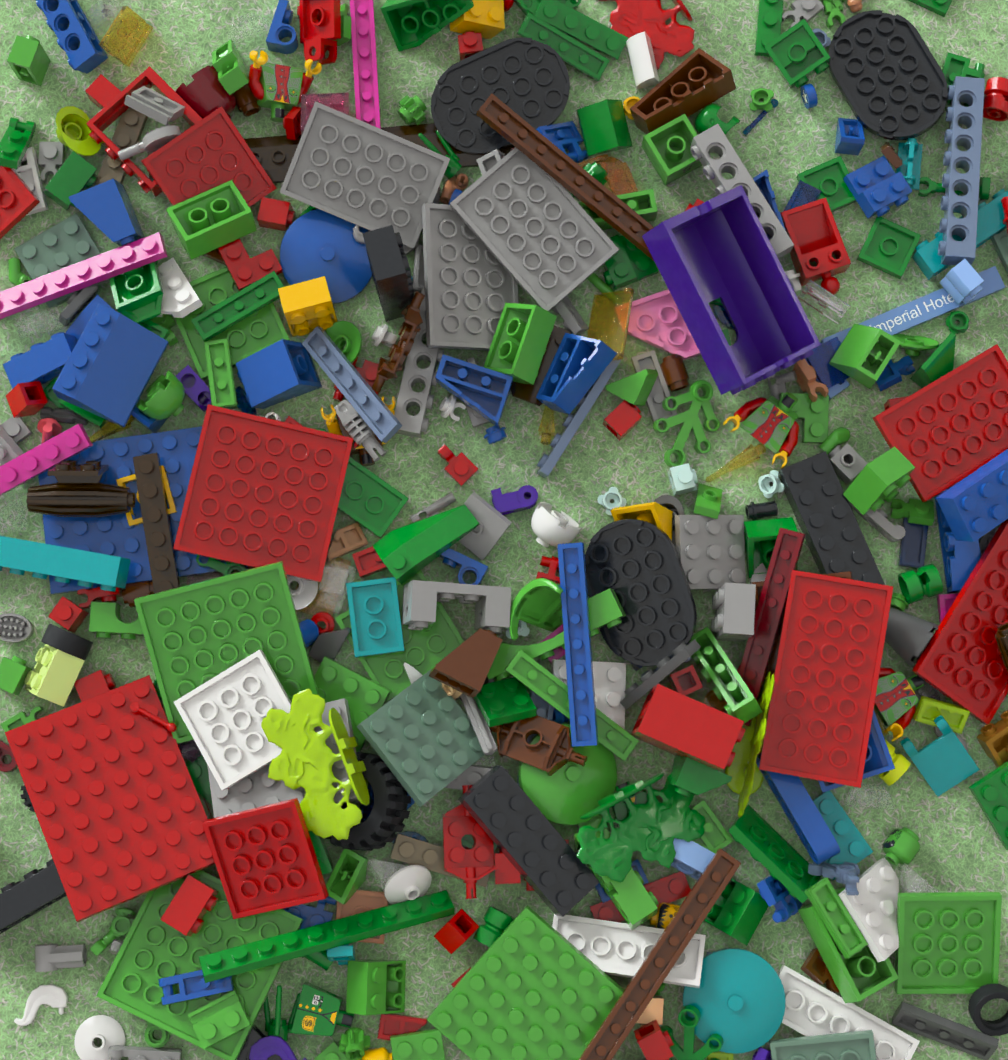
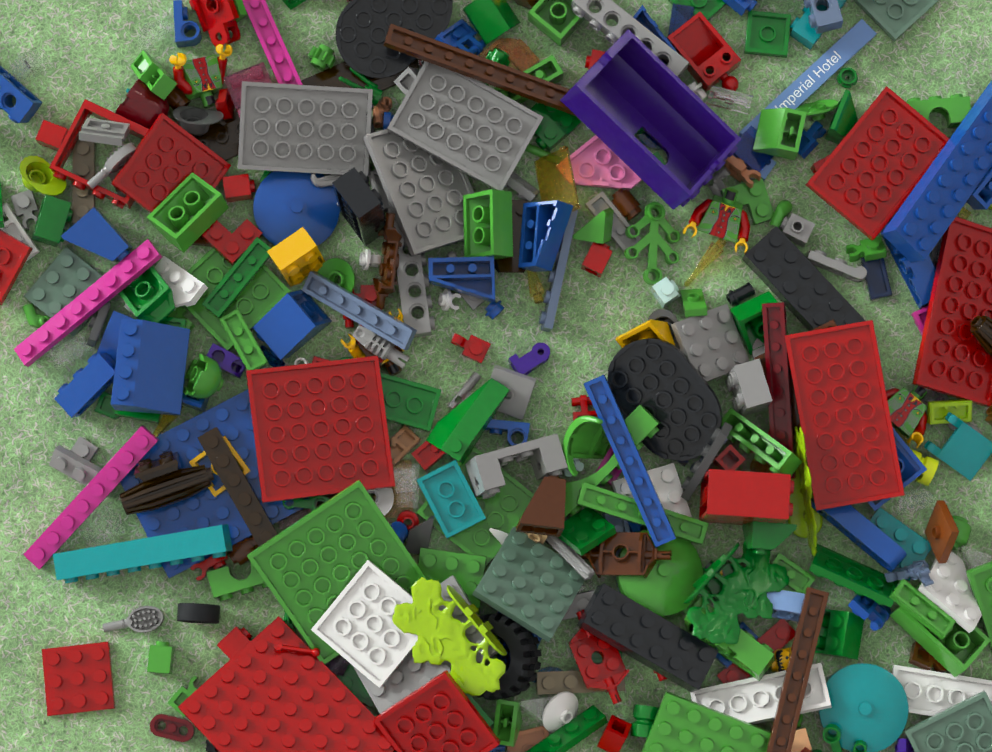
camera: 20 degrees left, 0 degrees up
(26, 399) = (85, 421): red brick -> none
(49, 427) = (112, 439): coral plate -> none
(53, 674) = (197, 644): yellowish green slope -> none
(62, 415) = (119, 424): dark grey axle -> none
(68, 614) = (190, 590): red brick -> none
(126, 36) = (51, 78): clear yellow plate -> none
(257, 128) = (196, 119): none -> dark grey piece
(505, 871) = (637, 670): red brick -> none
(553, 526) = (571, 370): white cylinder -> none
(611, 494) = (611, 324): light aqua plate -> none
(764, 484) = (736, 273): light aqua plate -> none
(879, 481) = (830, 236): bright green brick -> none
(886, 841) = (941, 531): none -> dark orange plate
(898, 602) = (881, 332): bright green plate -> none
(908, 634) = (899, 355): dark grey cone -> none
(912, 587) = (887, 312): green wheel -> none
(962, 282) = (840, 44): light blue brick -> none

